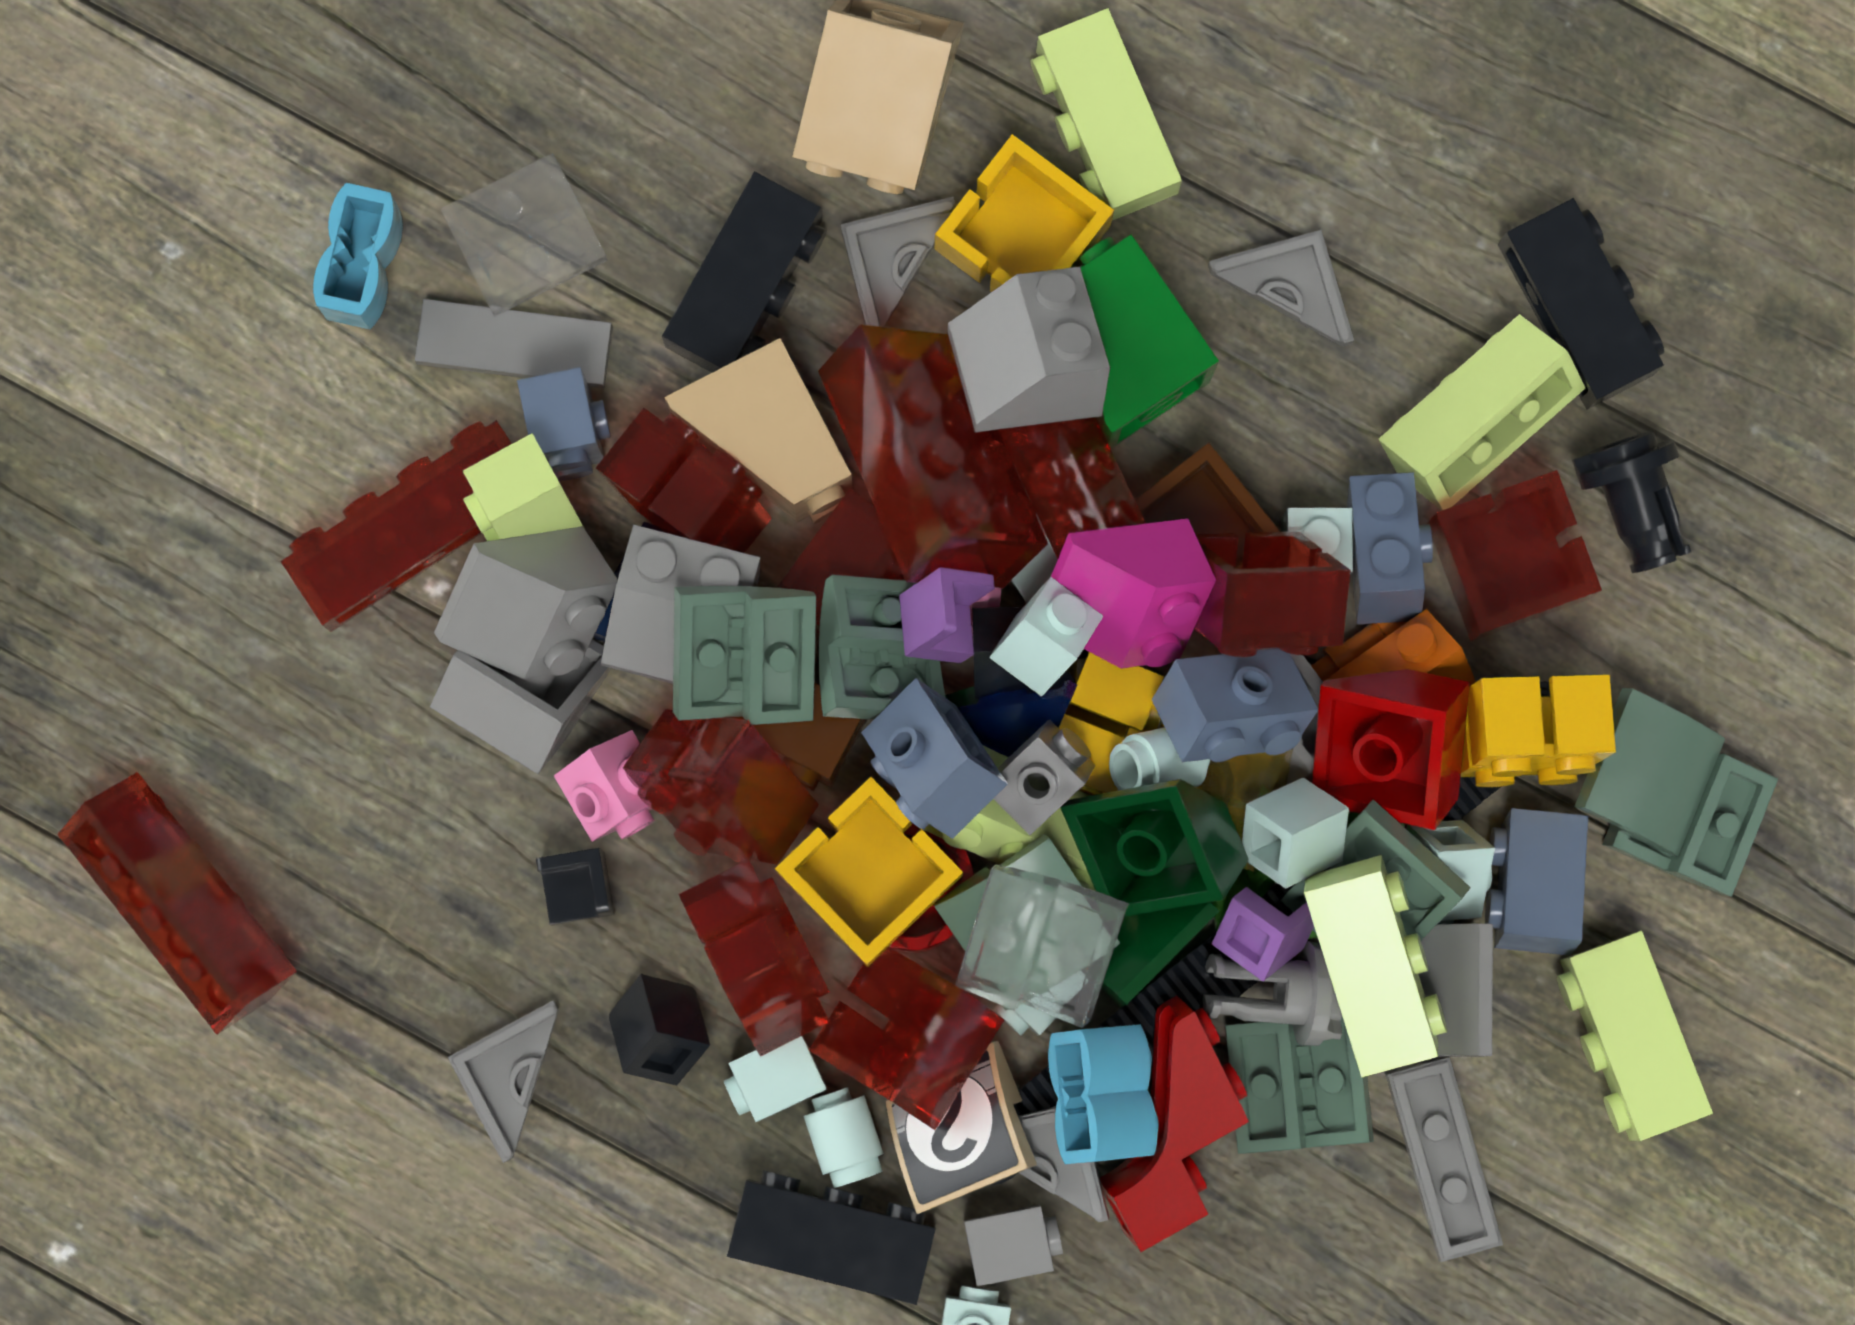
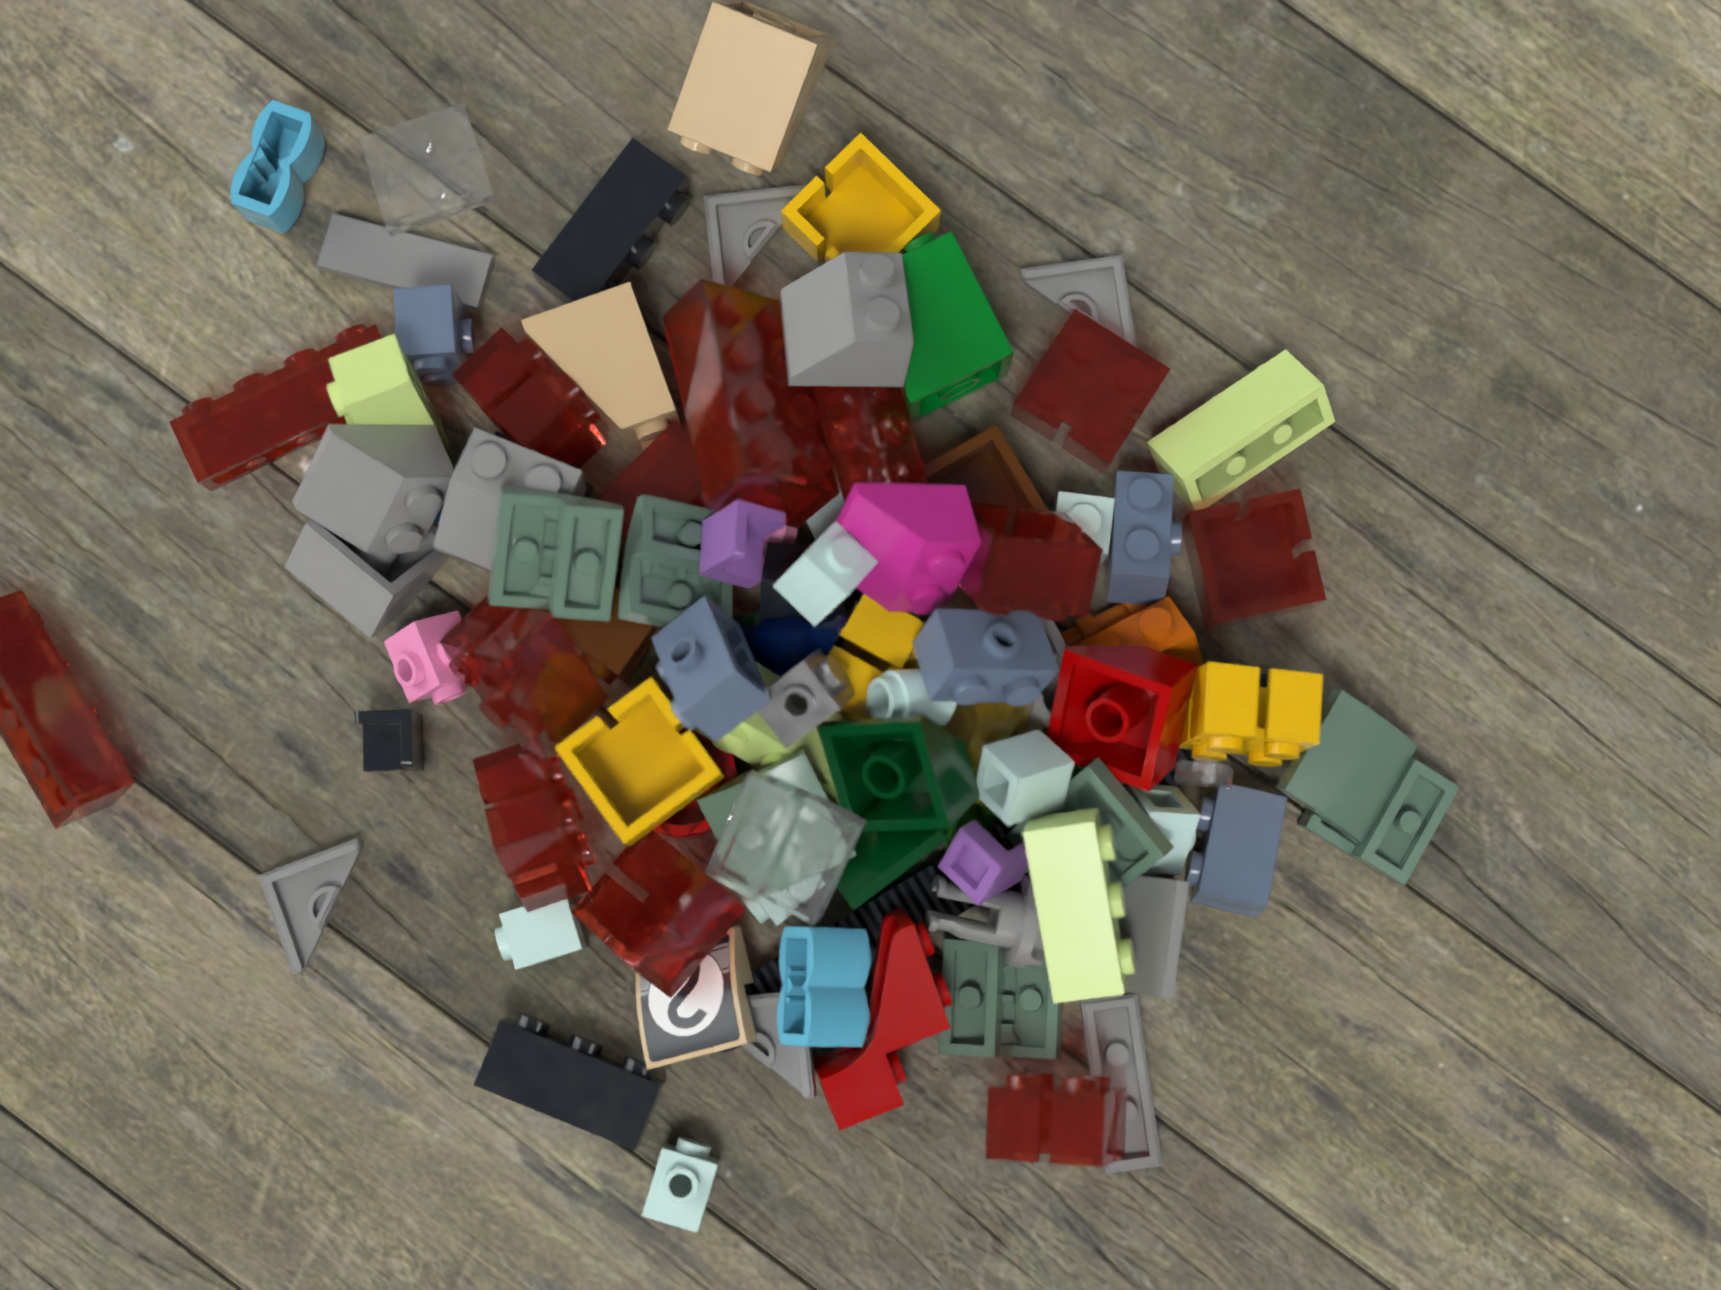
camera: 10 degrees right, 0 degrees up
(659, 1029) = (445, 876): black panel -> none
(844, 1137) = (594, 993): light aqua brick -> none
(1012, 1244) = (727, 1107): light grey brick -> none
(1105, 114) = (947, 130): yellowish green brick -> none
(1309, 385) = (1090, 385): none -> clear red piece
(1390, 1208) = (1070, 1121): none -> clear red piece
(1491, 802) = (1203, 773): none -> clear tile
(1583, 300) = (1343, 345): black brick -> none
(1633, 1037) = (1301, 998): yellowish green brick -> none
(1637, 496) = (1368, 523): black piece -> none

